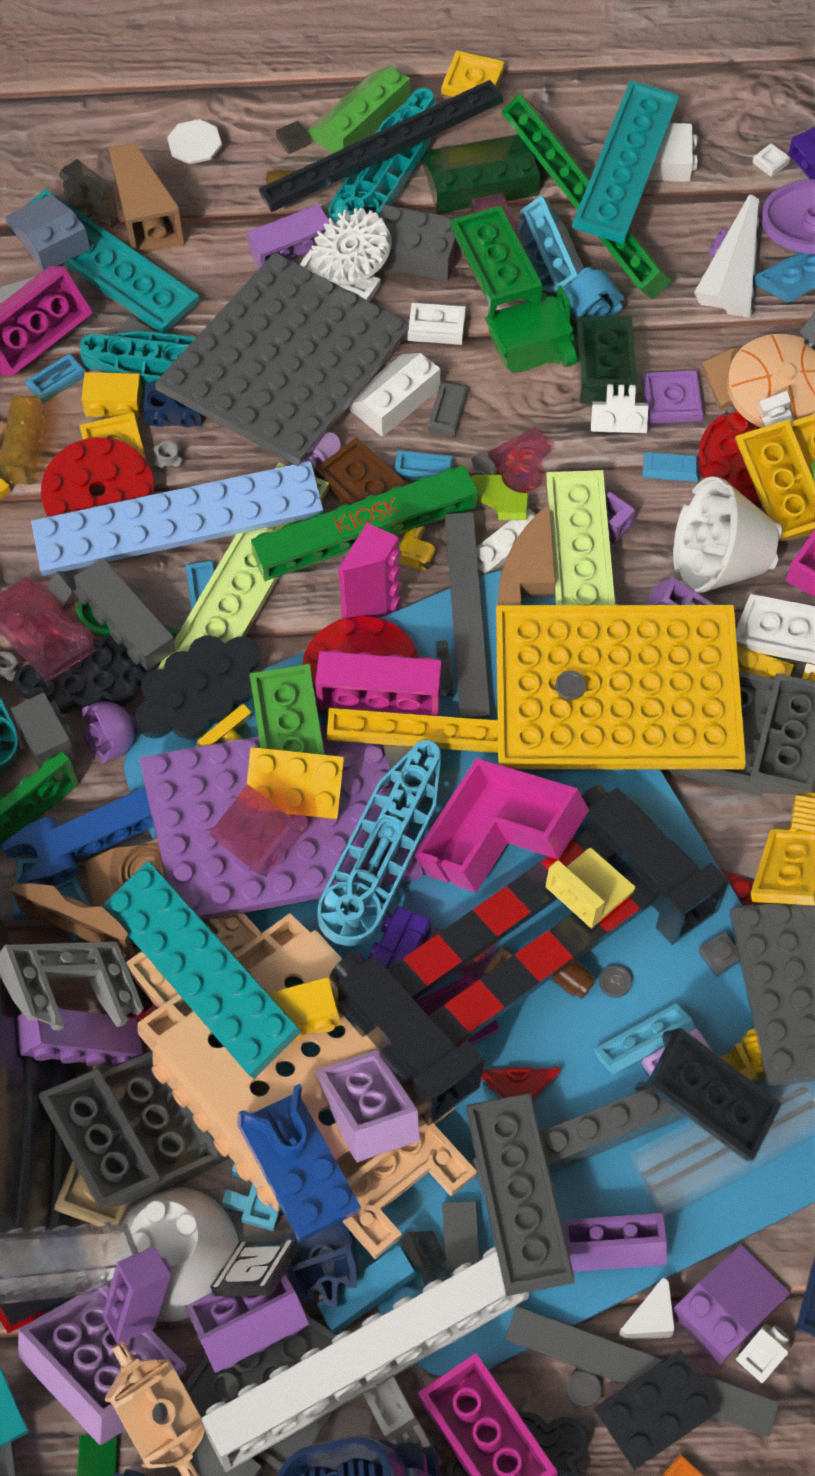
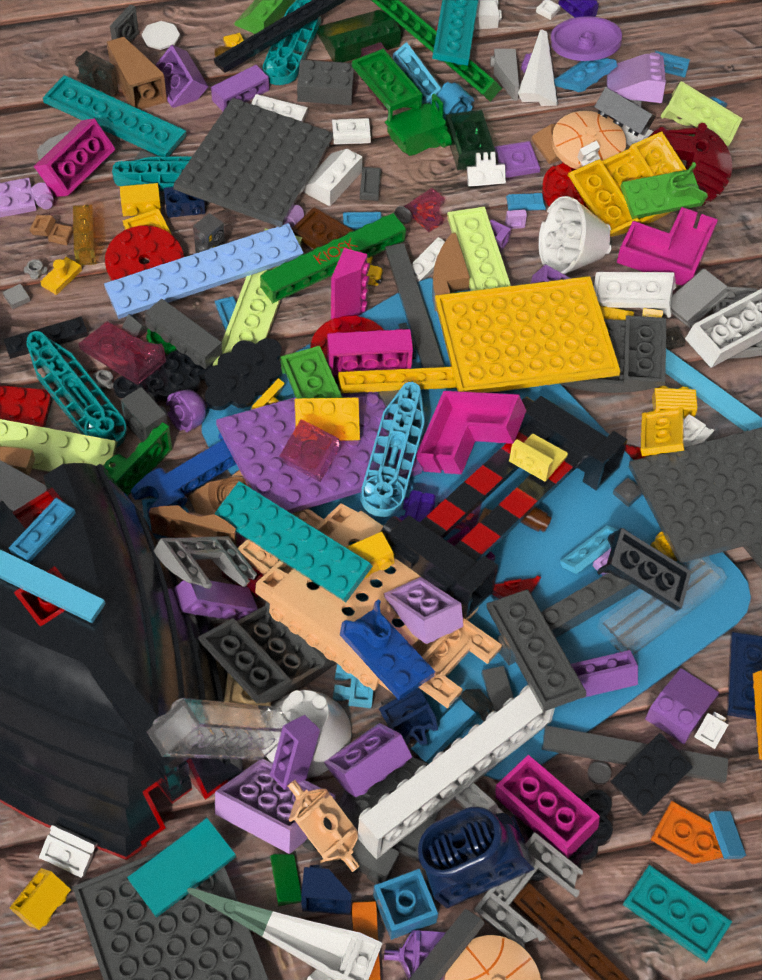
camera: 15 degrees left, 5 degrees down
(49, 231) = (74, 100): sand blue slope -> none
(59, 380) = (100, 196): dark azure tile -> none
(144, 125) = (125, 25): none -> dark grey tile
(167, 448) = (185, 233): light grey plate -> none
(193, 463) = (208, 233): none -> flat silver brick
(207, 210) = (181, 77): none -> medium lavender slope
(255, 1268) = (366, 729): tile -> none
(293, 137) = (227, 26): clear smoke plate -> none
(297, 160) = (232, 40): none -> yellow plate
(352, 247) = (286, 88): white wheel -> none
(505, 502) = (423, 235): lime tile -> none
(570, 685) = (495, 337): flat silver piece -> none
(615, 981) = (563, 519): flat silver piece -> none
(648, 493) = (515, 219): none -> lavender plate
(652, 1318) = (636, 720): white slope -> none
(685, 251) = (505, 70): none -> light grey slope

